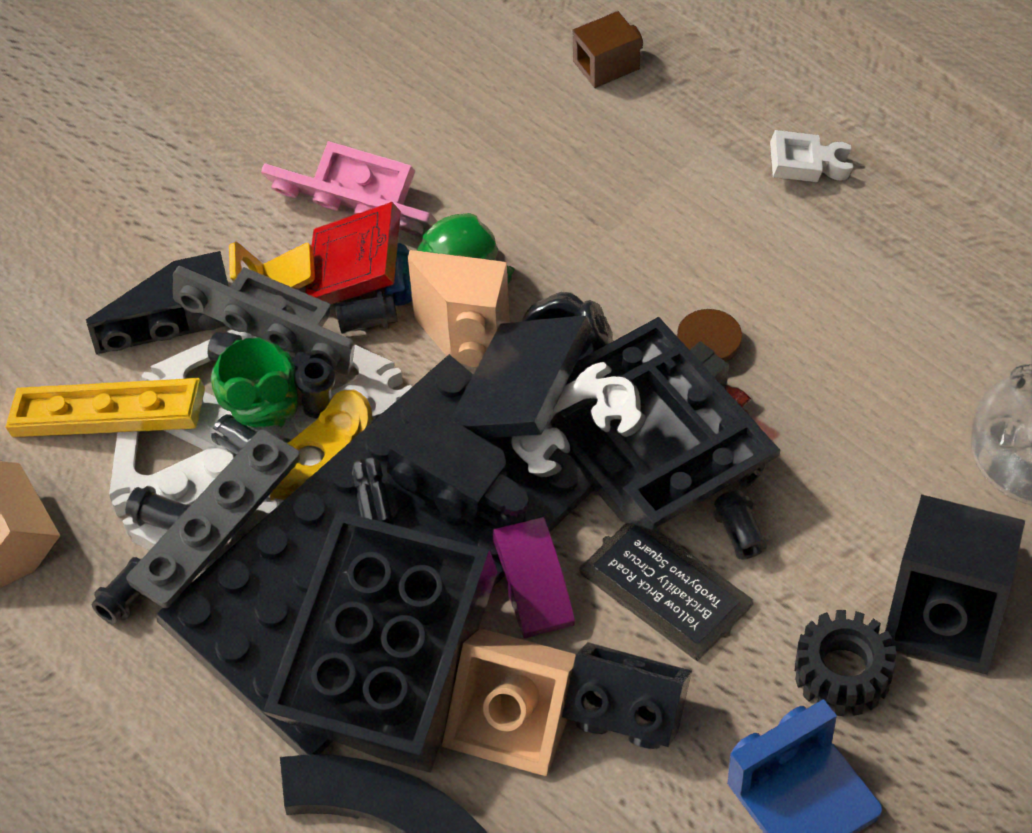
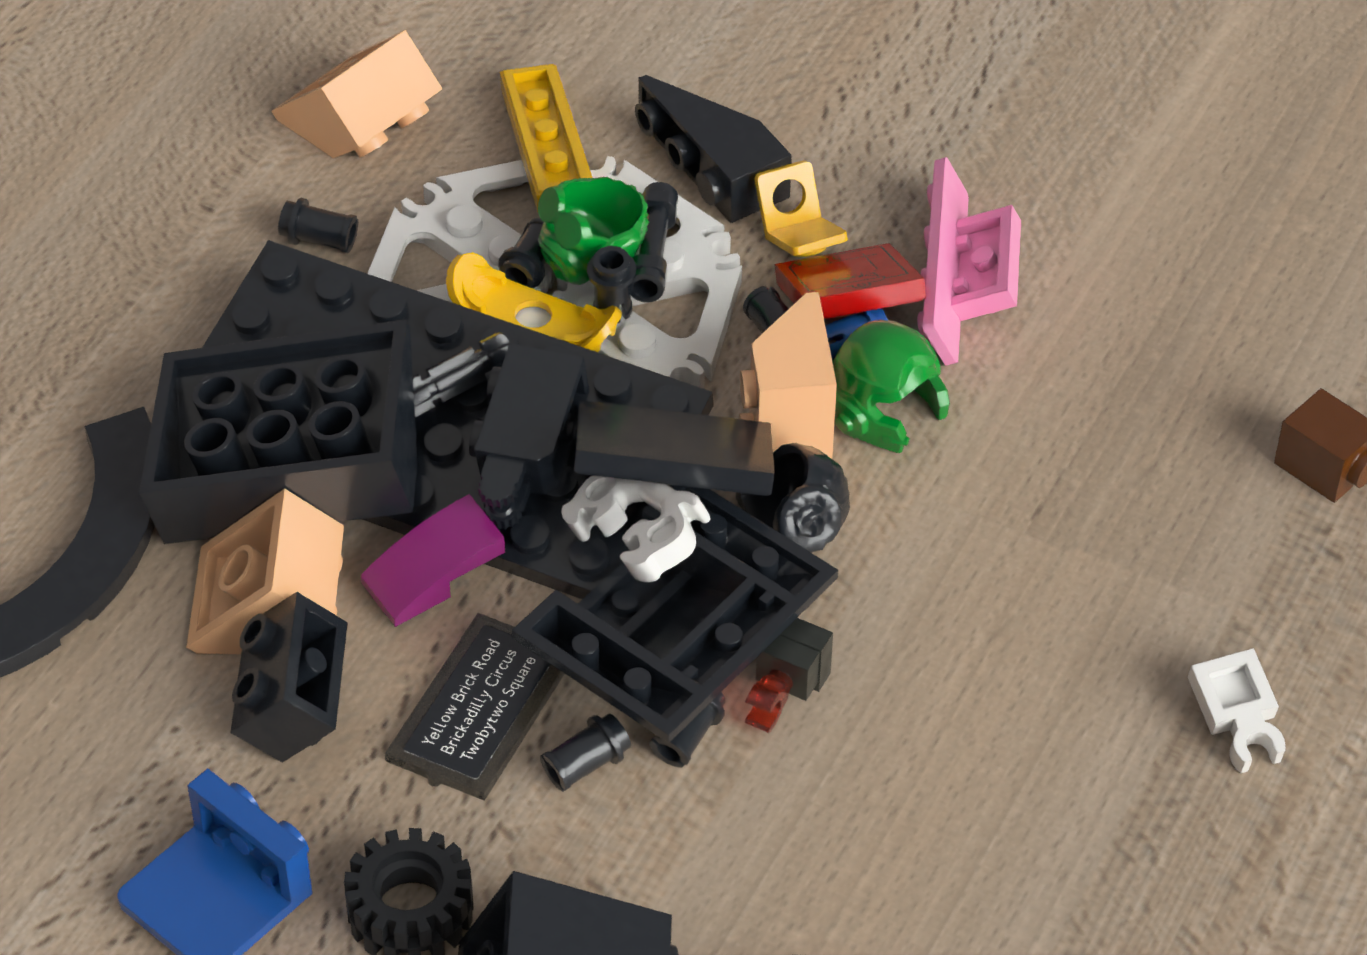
camera: 70 degrees right, 5 degrees down
(151, 508) = (415, 203): black pin -> none
(213, 518) = (392, 244): dark grey bracket -> none
(266, 311) = (718, 225): dark grey bracket -> none
(714, 329) = (877, 664): reddish brown piece -> none

